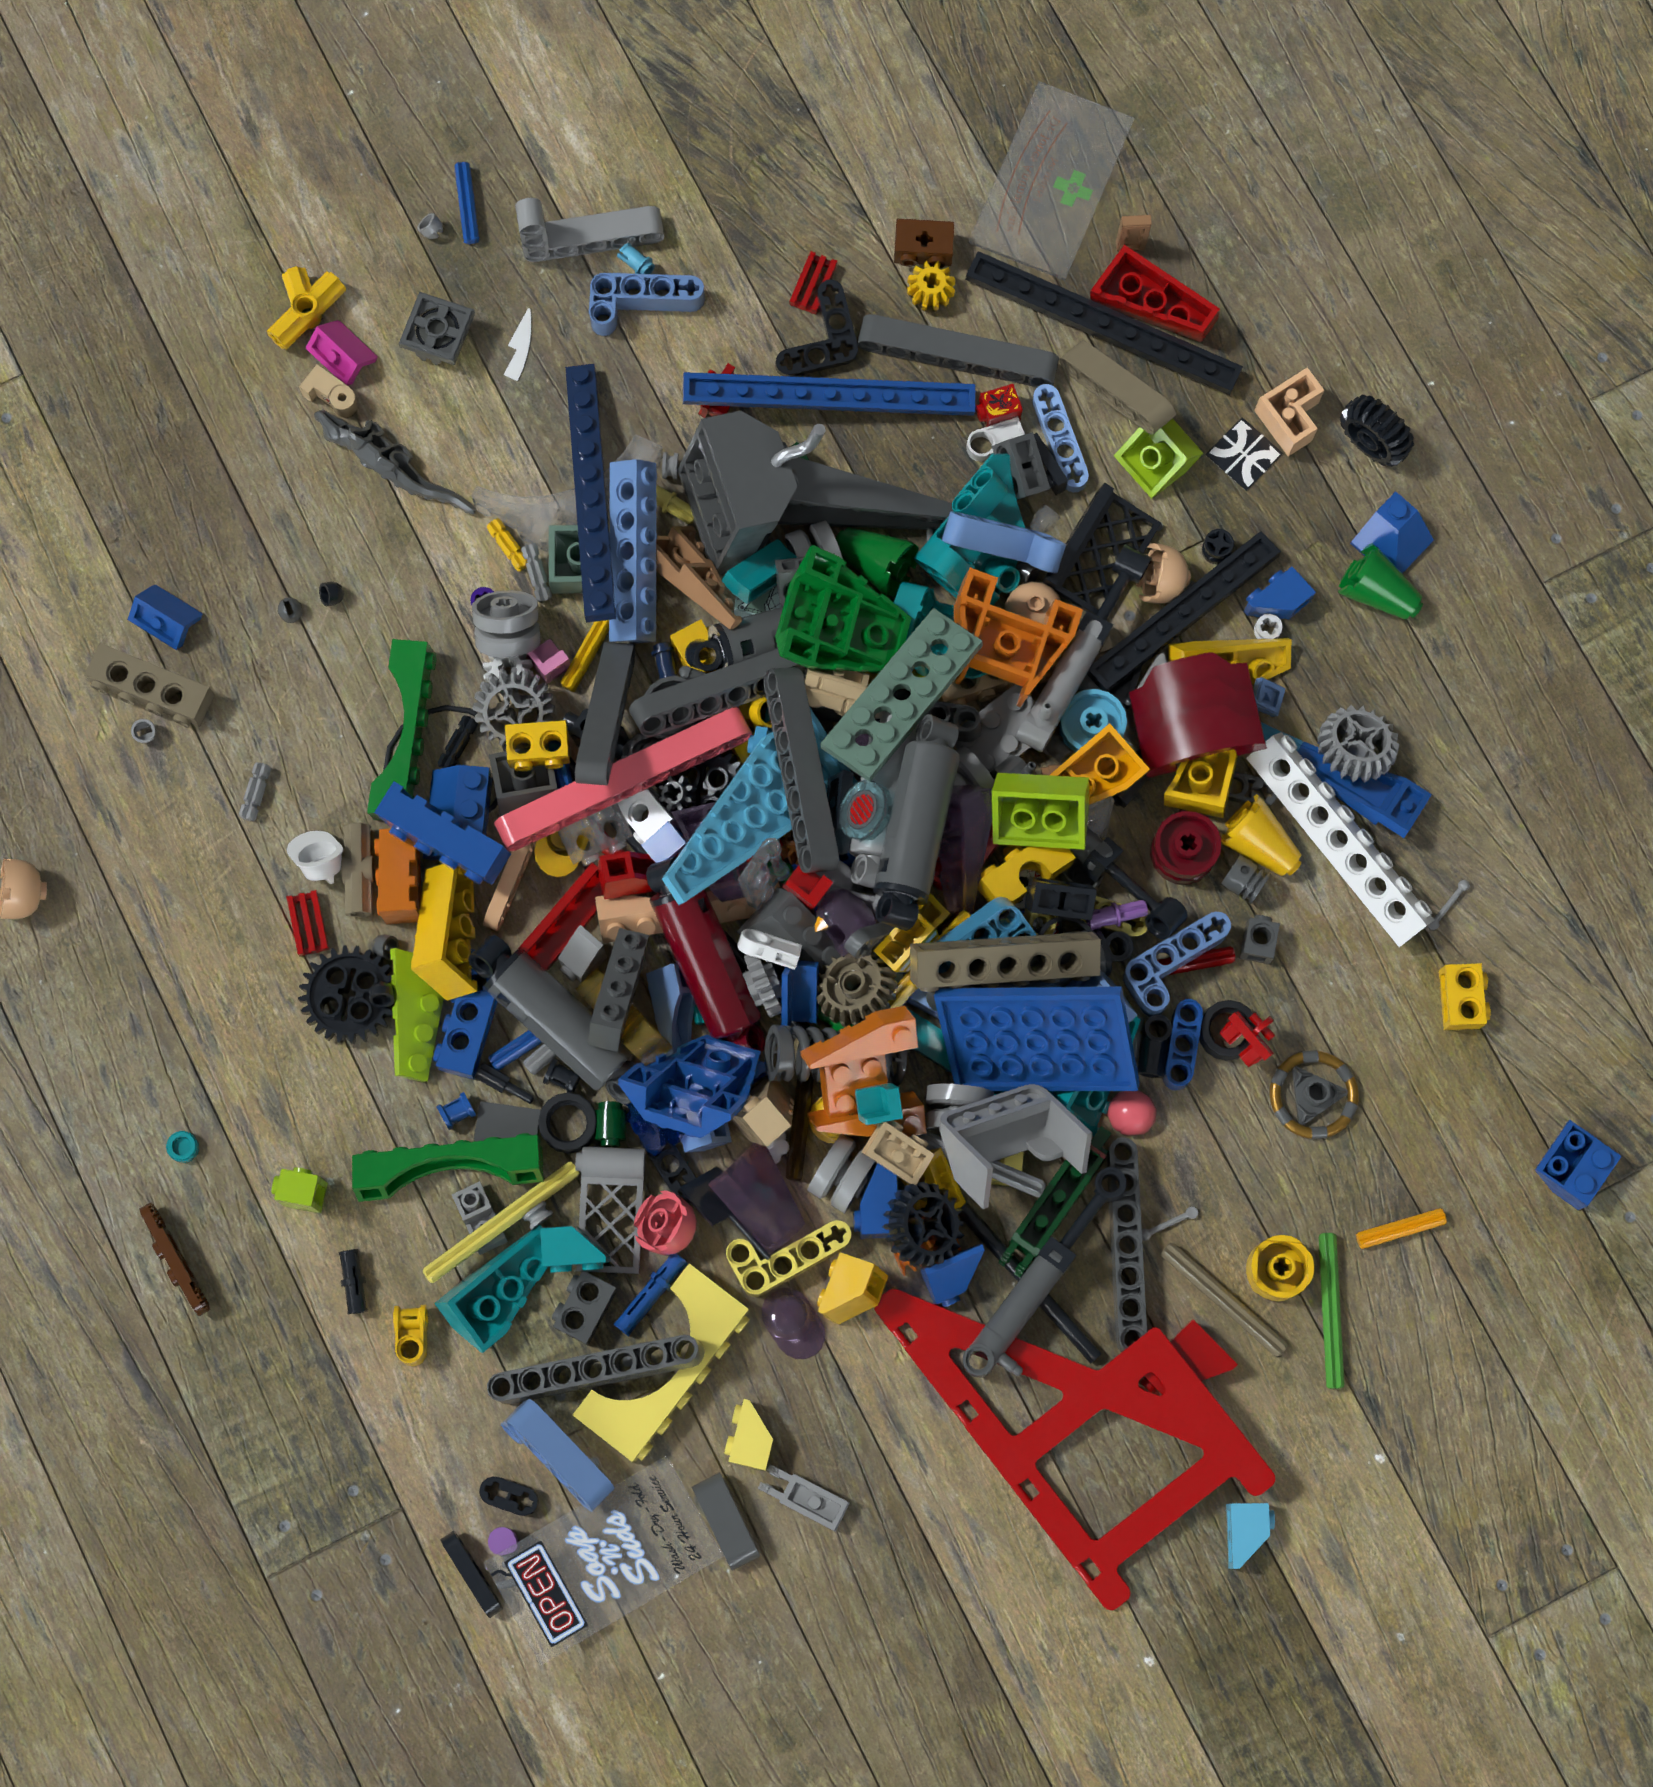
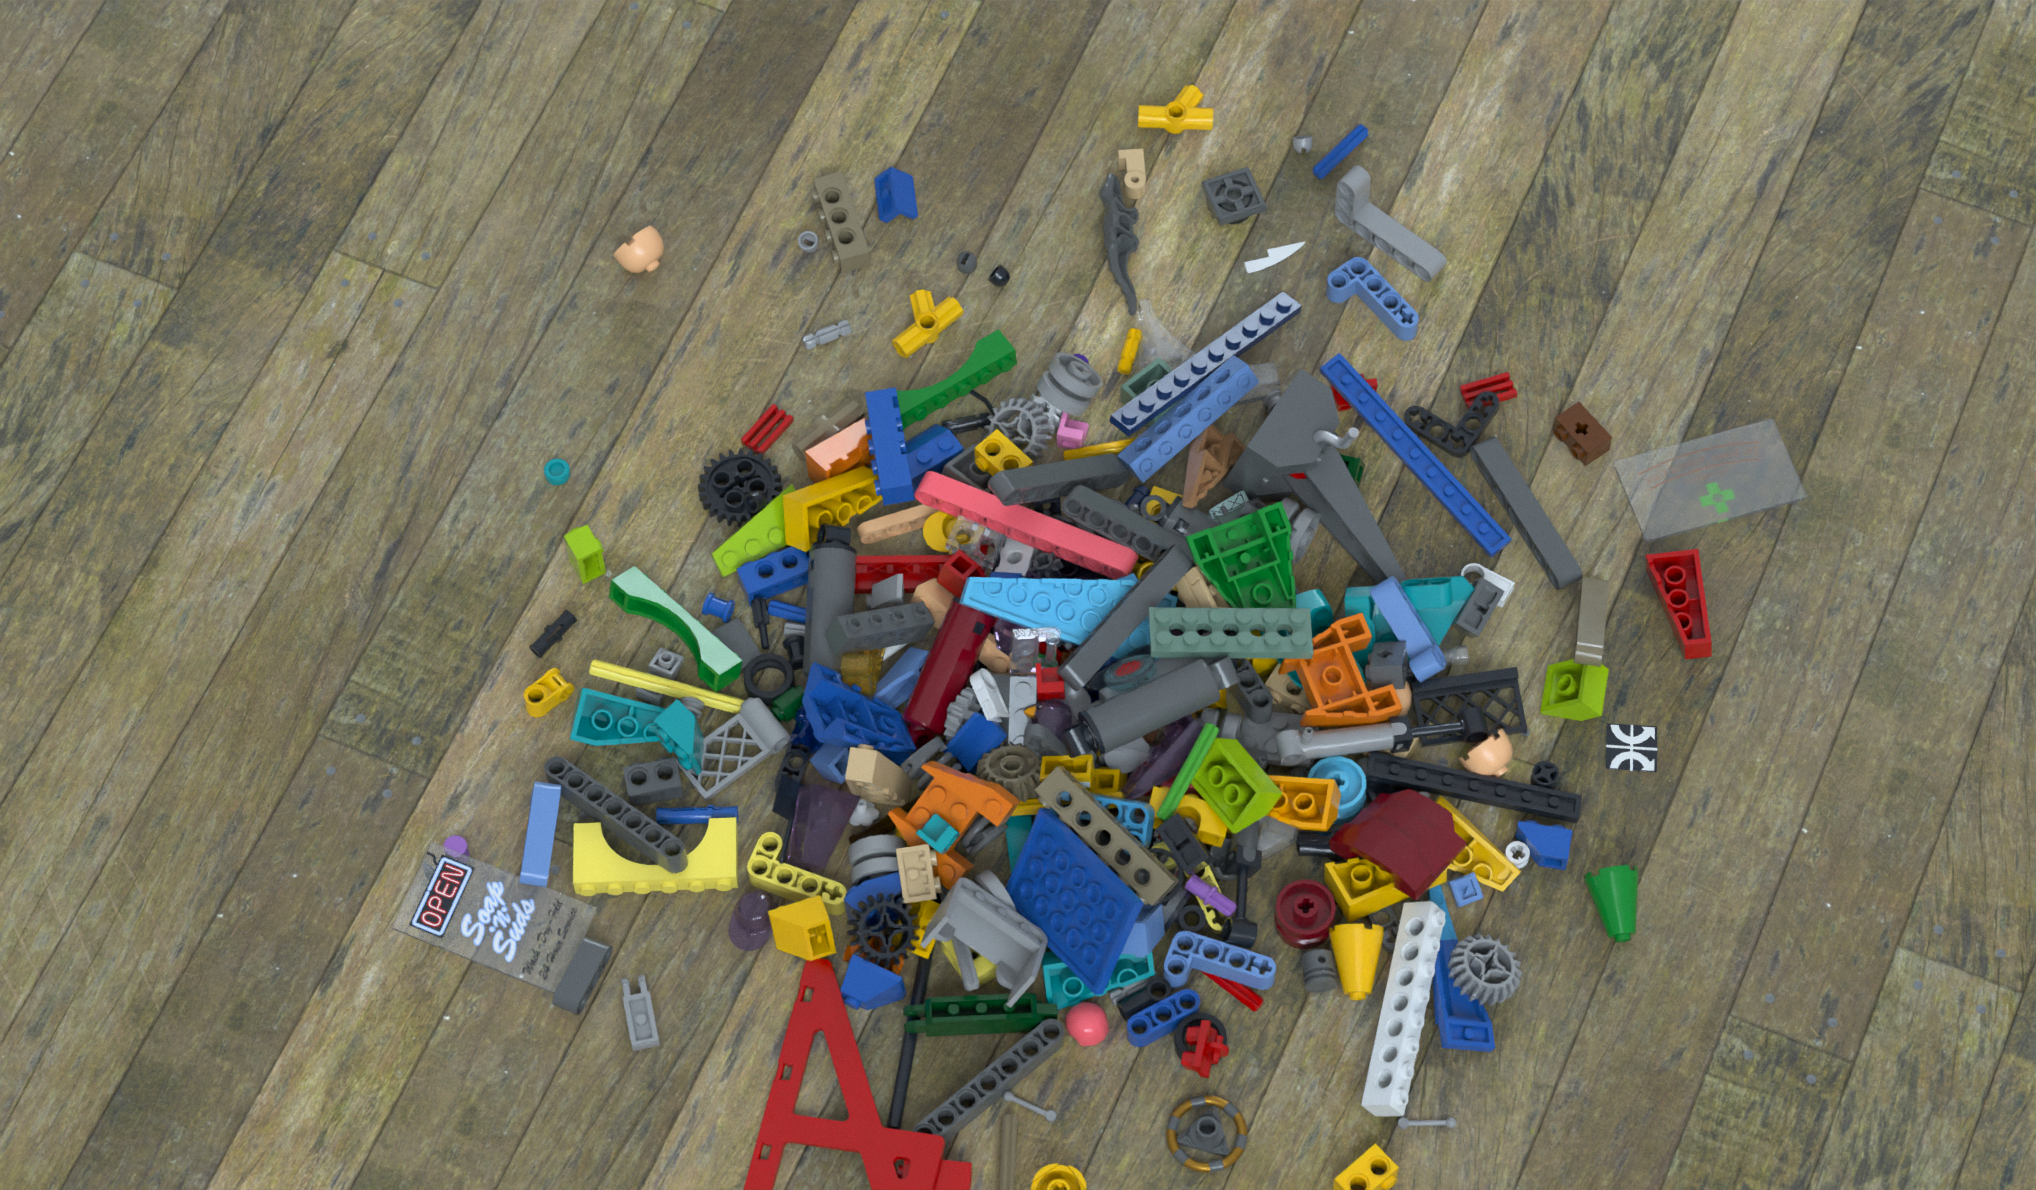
camera: 55 degrees right, 15 degrees down
(179, 1270) = (481, 515): reddish brown plate -> none
(313, 690) = (926, 315): none -> yellow piece
(316, 855) = (814, 398): white piece -> none
(340, 351) = (1167, 157): dark pink panel -> none
(379, 945) = (795, 479): dark grey hinge -> none
(471, 1574) = (419, 846): black beam -> none
(505, 1503) = (484, 834): black beam -> none
(536, 572) = (1133, 365): light grey axle -> none
(636, 260) = (1398, 275): medium azure pin -> none
(665, 1223) = (750, 785): coral cylinder -> none
(673, 505) = (1248, 418): light yellow axle -> none
(751, 1441) = (650, 948): light yellow slope -> none
(757, 572) = (1232, 496): teal piece -> none
(878, 557) = (1329, 569): green cone -> none
(920, 289) = (1546, 457): yellow gear -> none
(999, 405) = (1511, 564): red brick -> none
(1001, 840) = (1187, 772): none -> bright green axle
(1024, 586) = (1387, 665): none -> dark grey brick
(1035, 1285) = (928, 1038): dark grey piece -> none
(1055, 475) = (1493, 634): black plate -> none
(1062, 437) = (1523, 620): light blue beam -> none
(1104, 323) = (1636, 588): black plate -> none
(1133, 232) = (1715, 551): medium nougat plate -> none
(1257, 952) = (1280, 1023): dark grey brick -> none
(1285, 411) = (1686, 742): light nougat brick -> none
(1377, 430) = (1725, 811): black gear -> none
(1396, 531) = (1664, 885): blue slope -> none

